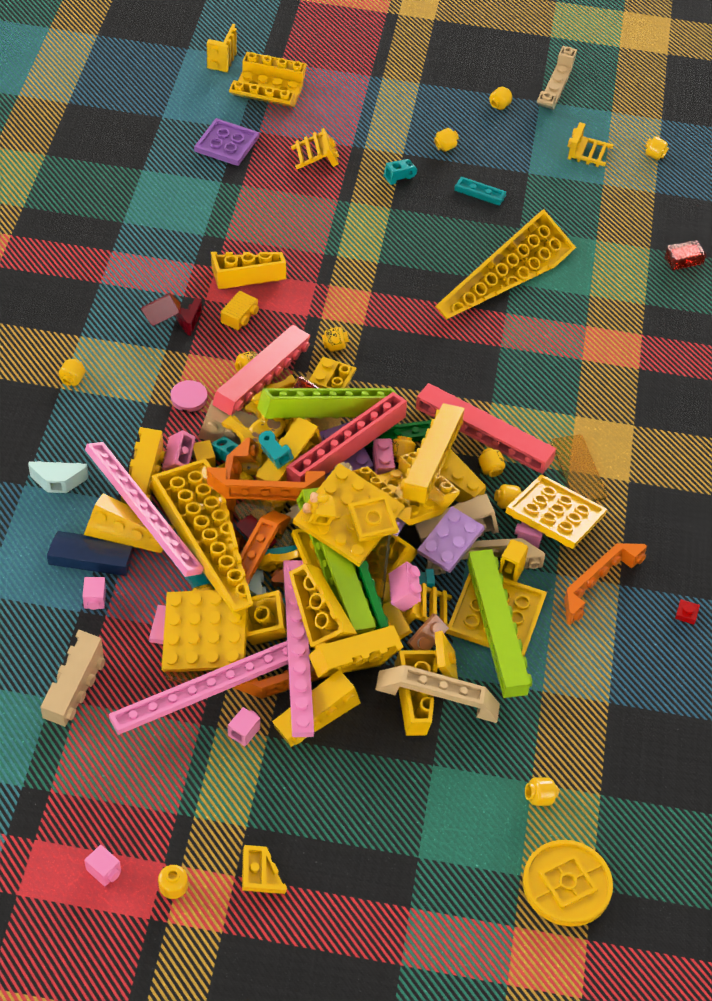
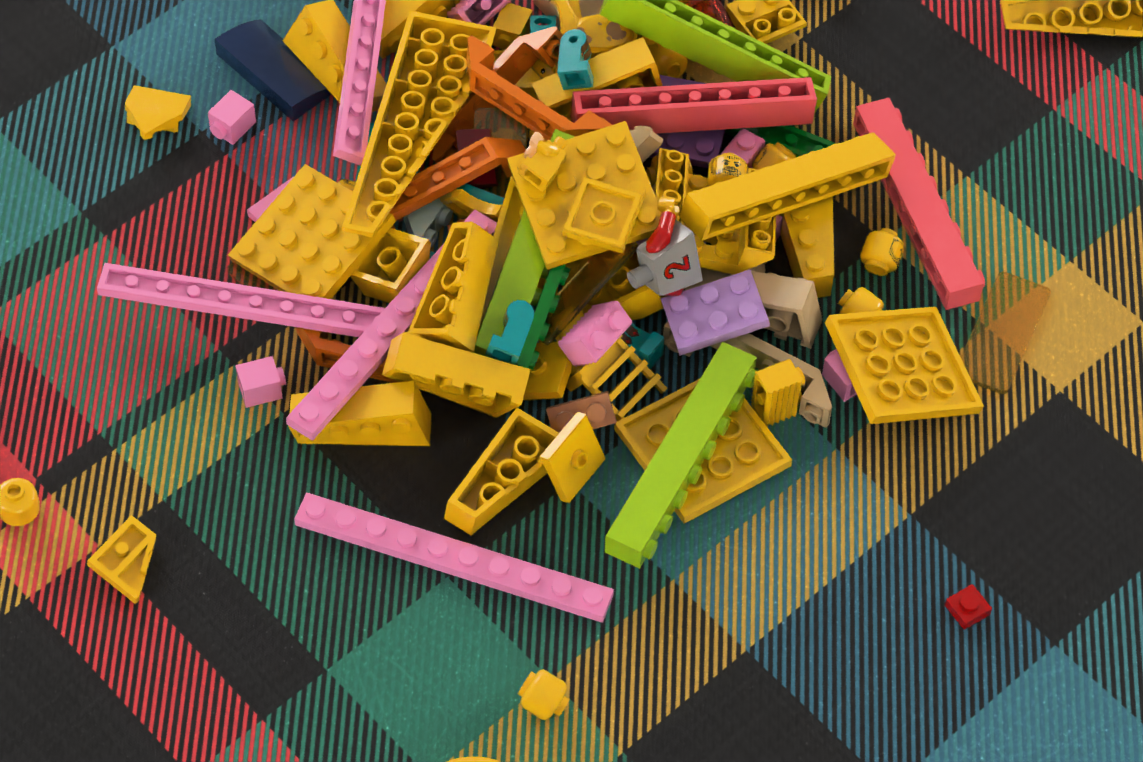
camera: 40 degrees right, 5 degrees up
(45, 615) = (155, 110): none -> yellow slope
(74, 679) = (115, 202): tan wedge -> none
(371, 611) = (516, 328): none -> teal leg
(395, 465) = (725, 167): none -> yellow head
(415, 521) = (668, 256): none -> light grey torso
(426, 753) = (454, 557): none -> bright pink plate
(439, 686) = (532, 491): tan slope -> none
(627, 553) = (960, 484): orange slope -> none

